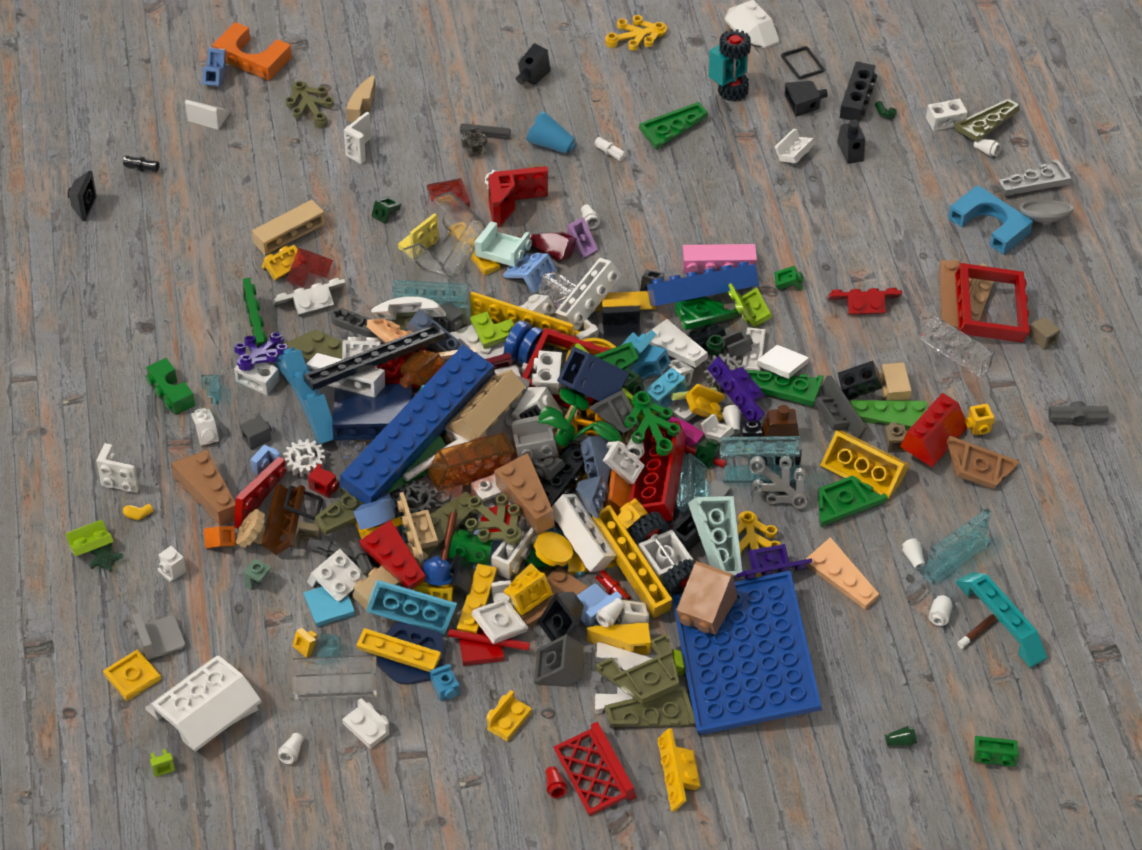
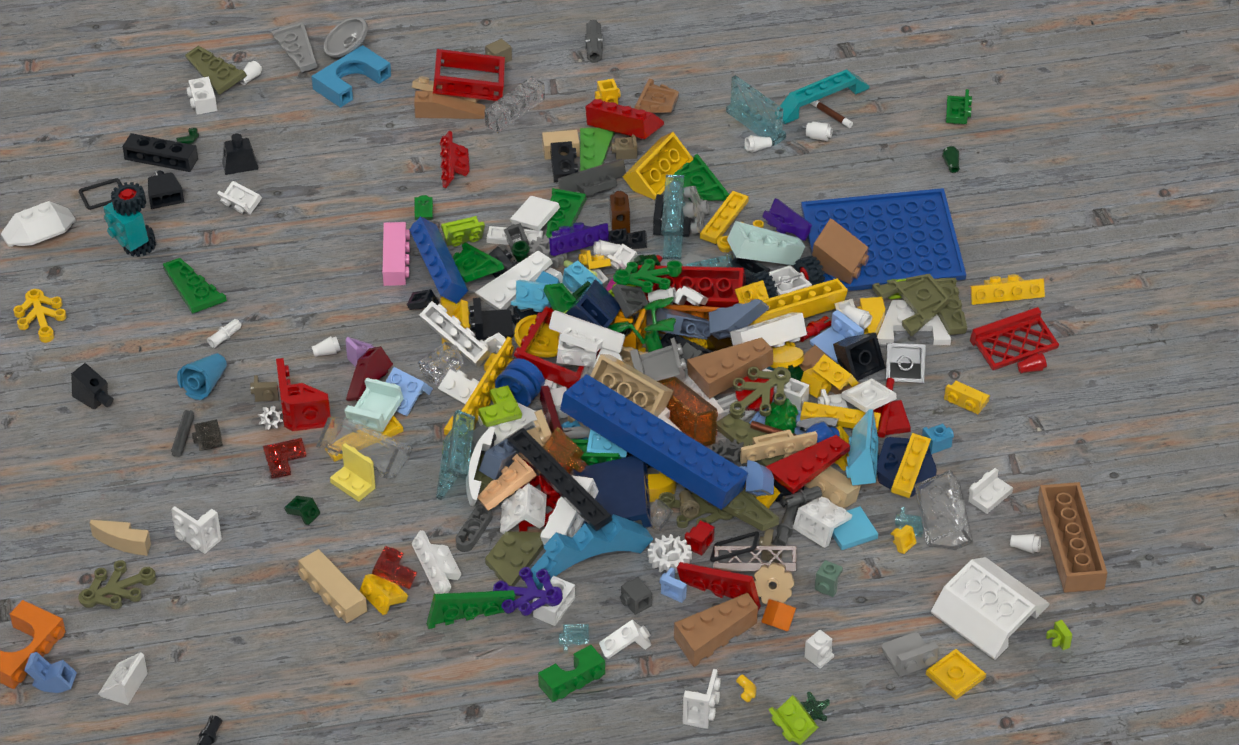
camera: 90 degrees left, 5 degrees down
(287, 784) = (1072, 537): none -> medium nougat brick
(547, 364) = (585, 334): none -> white bracket
(788, 519) = (724, 217): none -> yellow plate
(841, 573) = (782, 188): light nougat wing -> none

